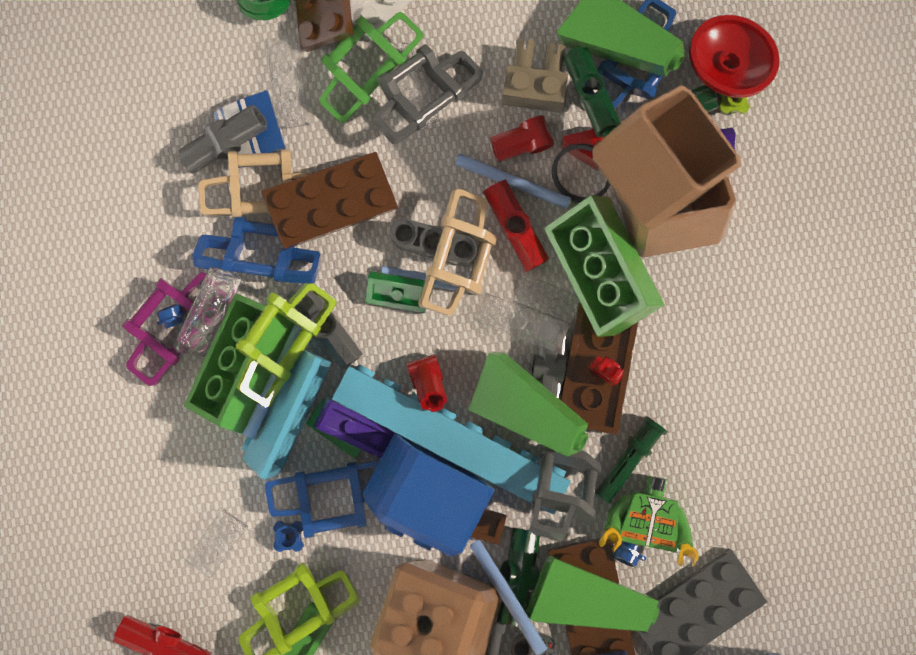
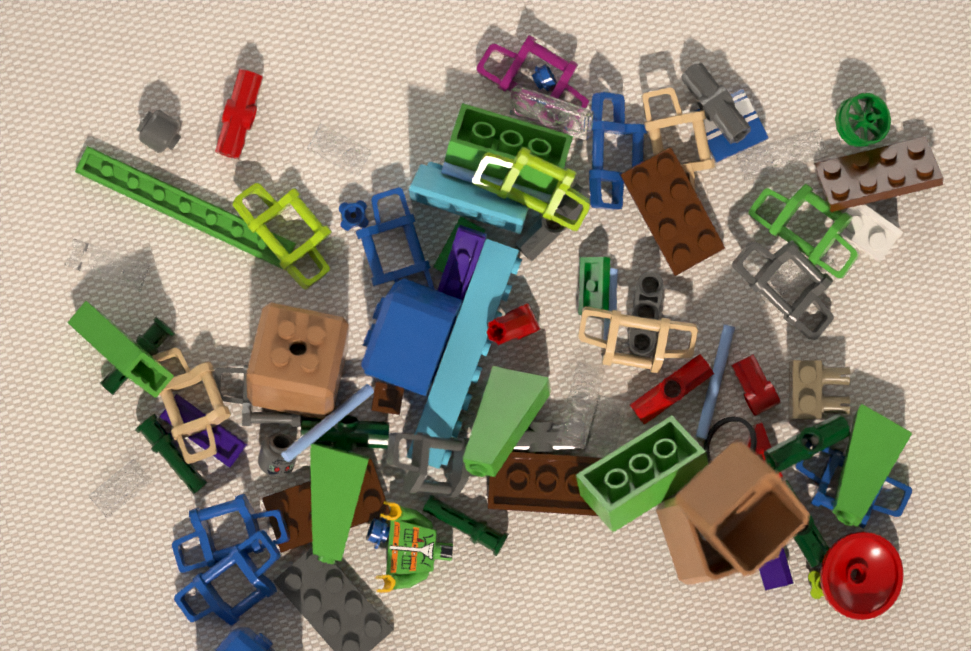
camera: 80 degrees right, 0 degrees up
(606, 369) = (546, 489): red plate -> none

